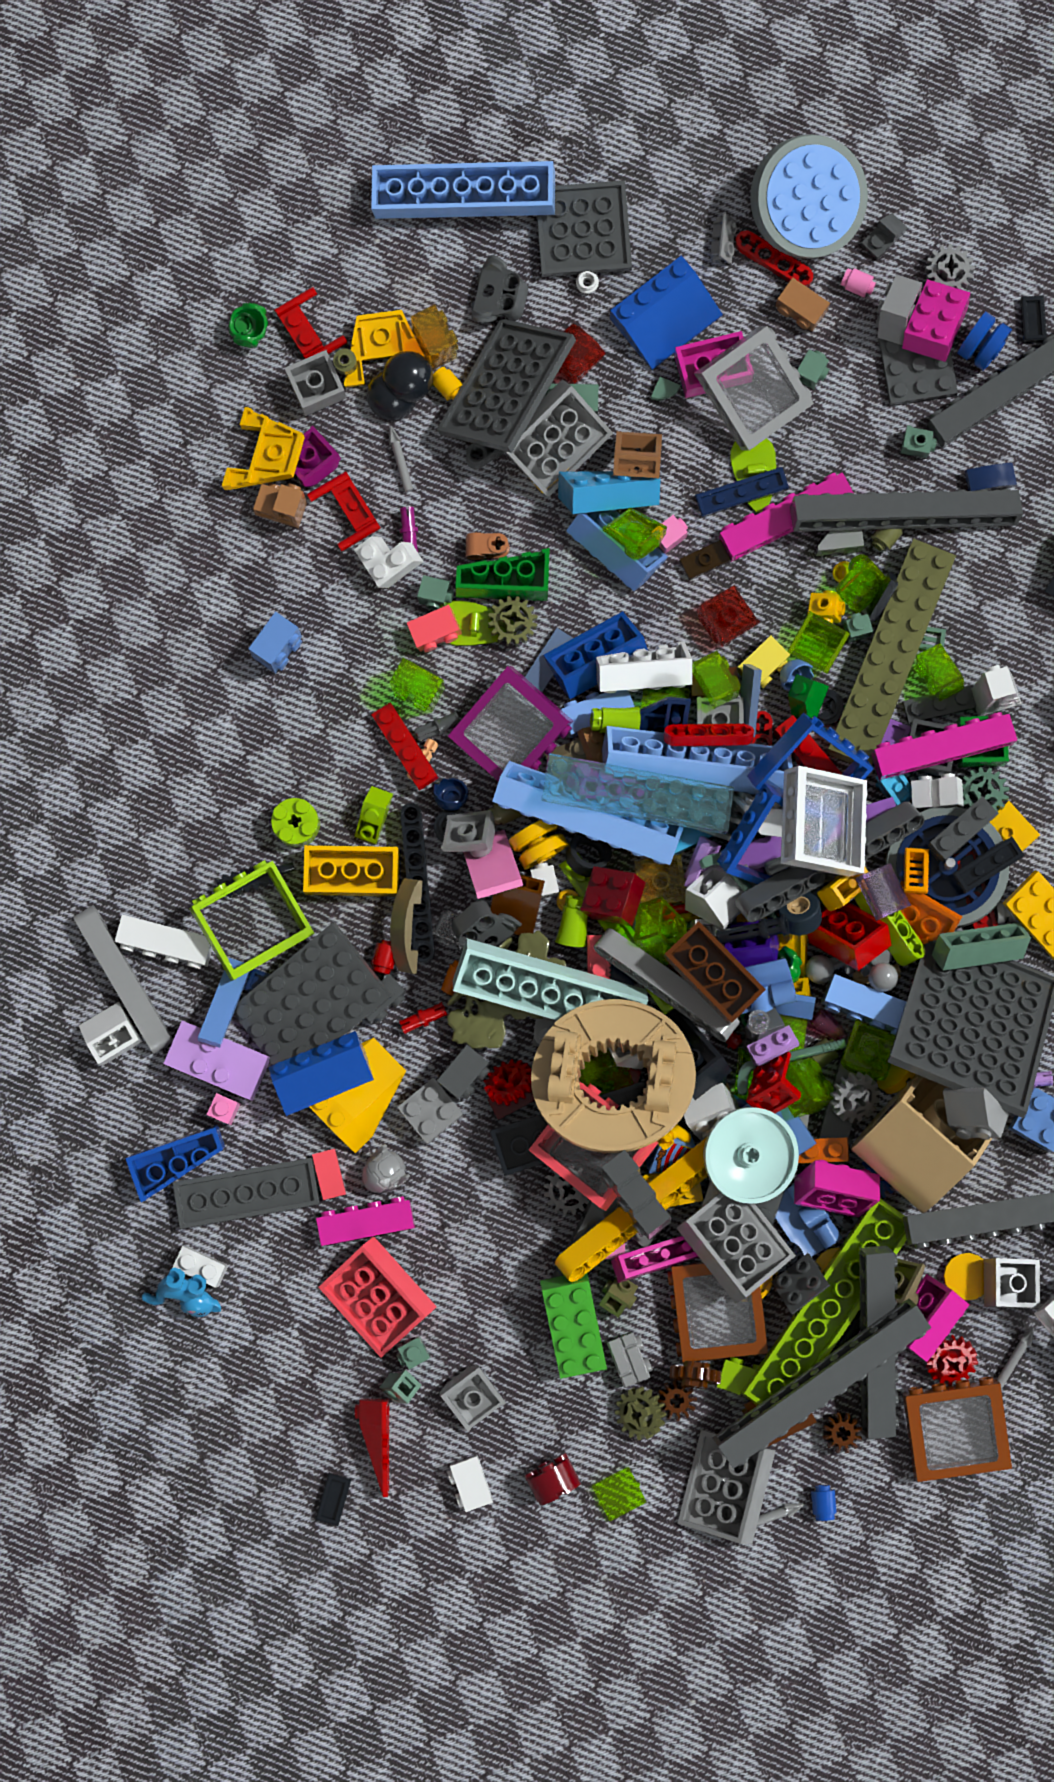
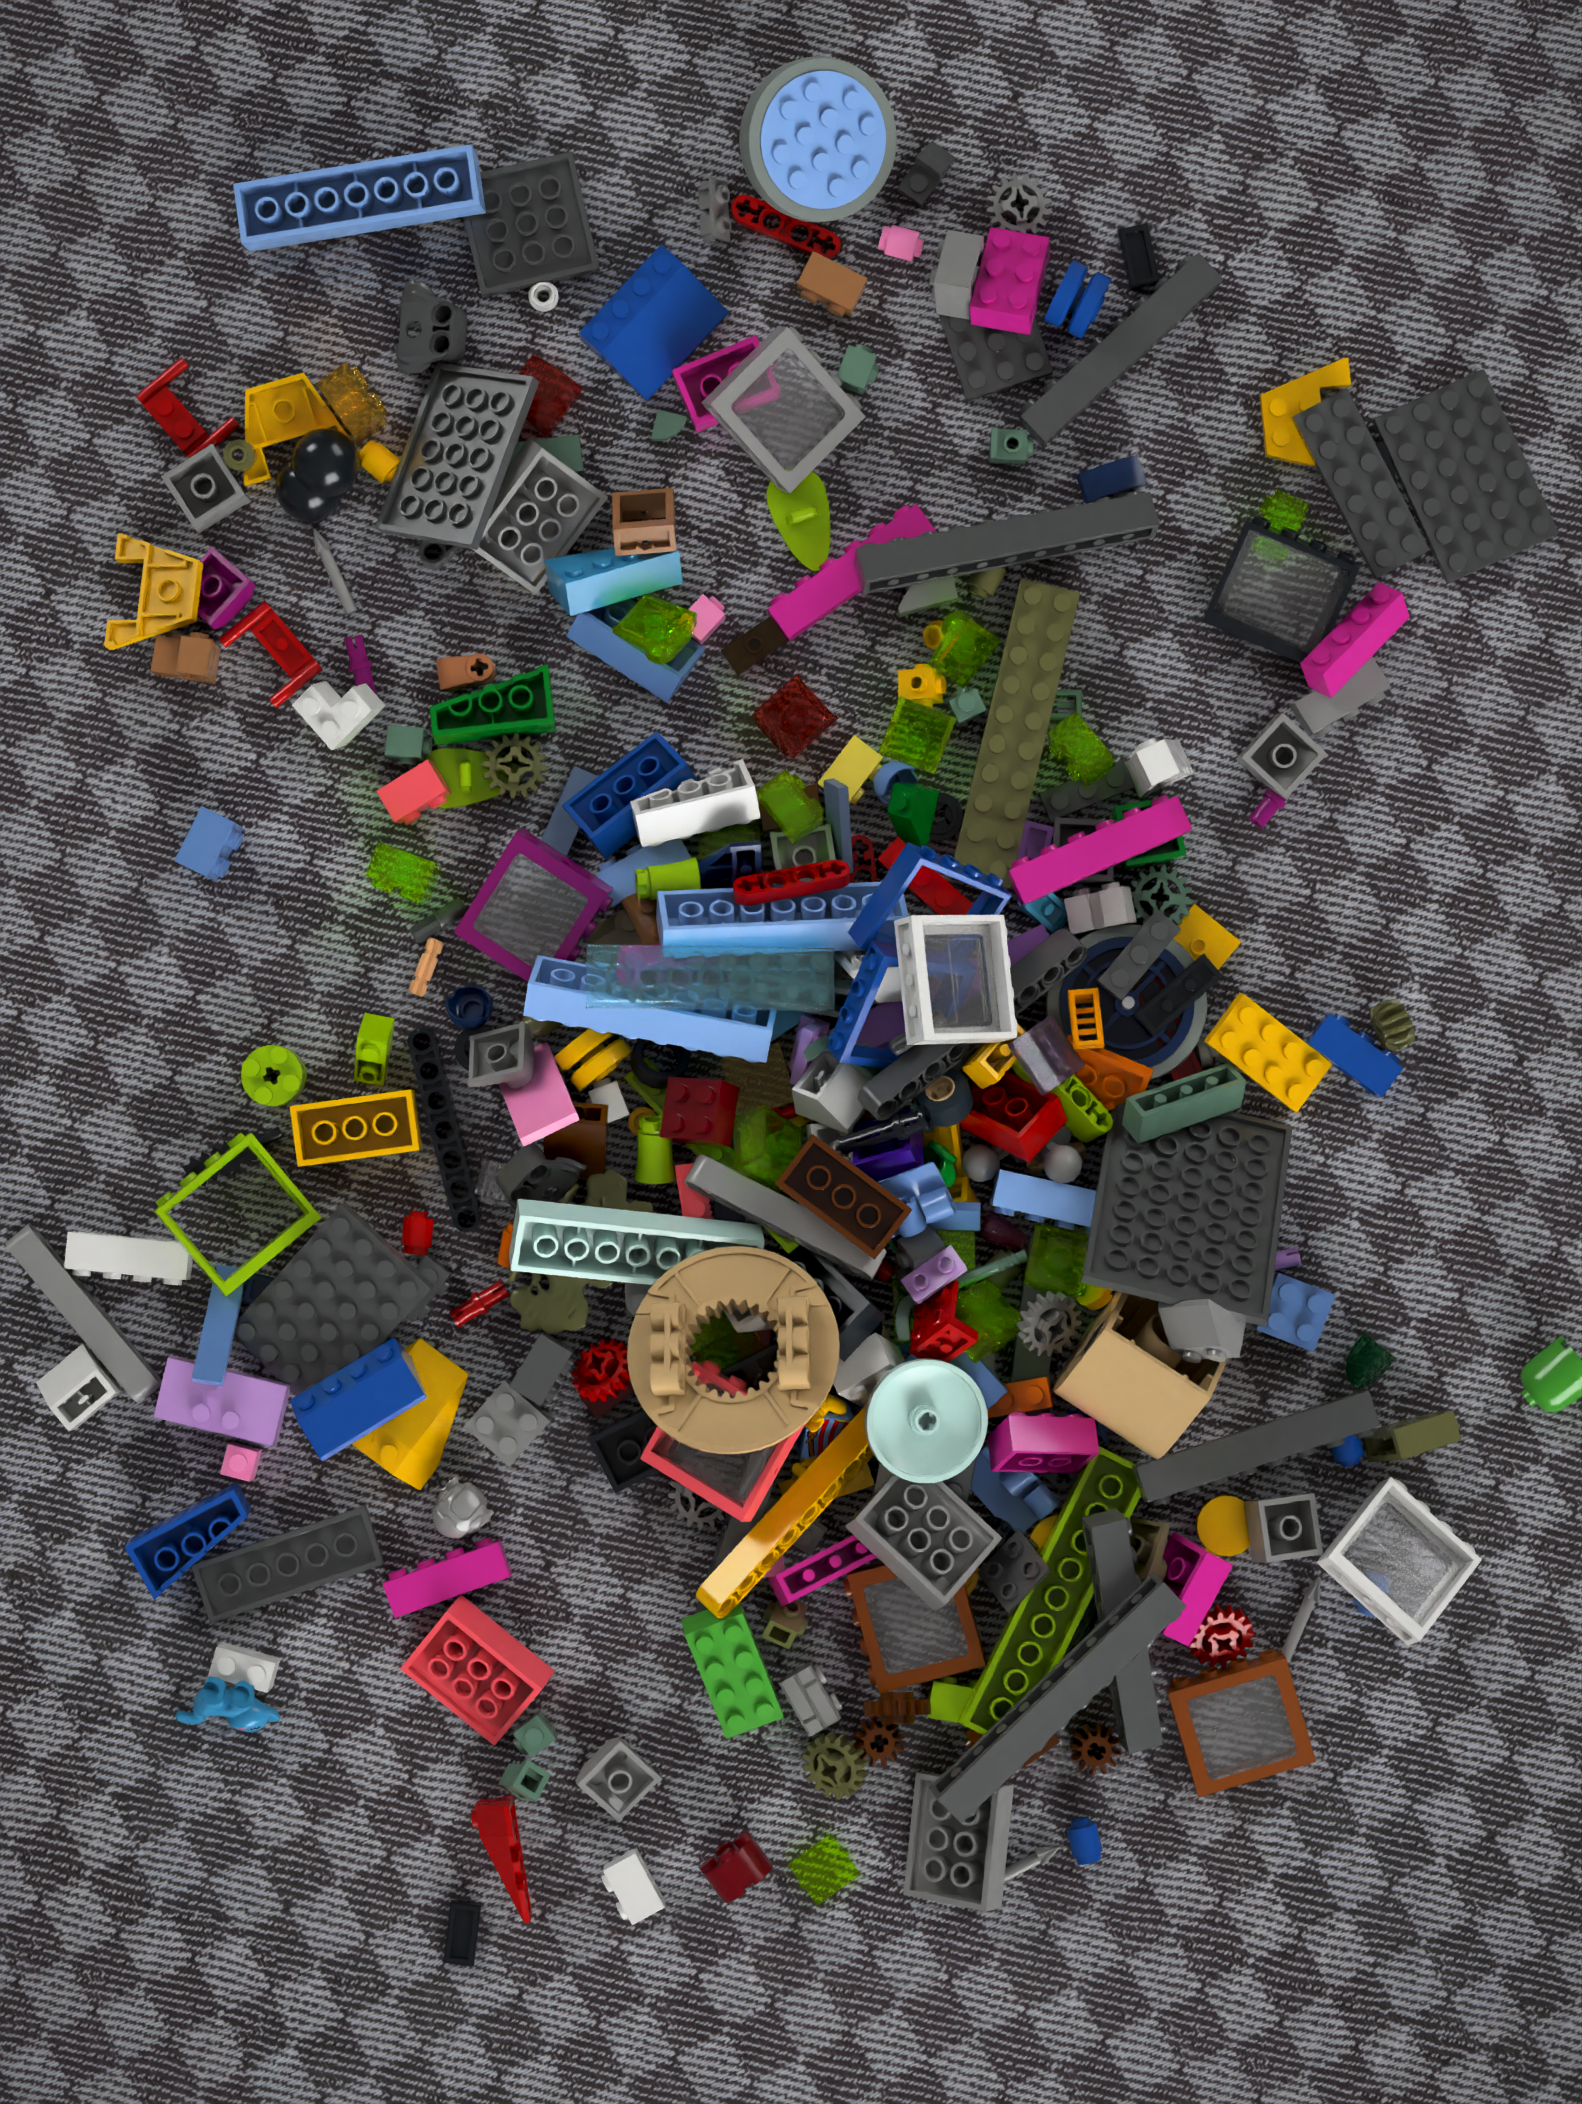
camera: 15 degrees left, 5 degrees up
(248, 325) = (104, 423): green hair -> none
(329, 1174) = (390, 1523): coral tile -> none
(401, 925) = (431, 1189): dark tan slope -> none
(405, 746) = (400, 953): red plate -> none
(635, 1195) = (784, 1500): dark grey brick -> none
(741, 492) = (789, 548): dark blue tile -> none
(758, 1028) = (902, 1245): clear bush -> none
(882, 597) = (992, 662): black tile -> none

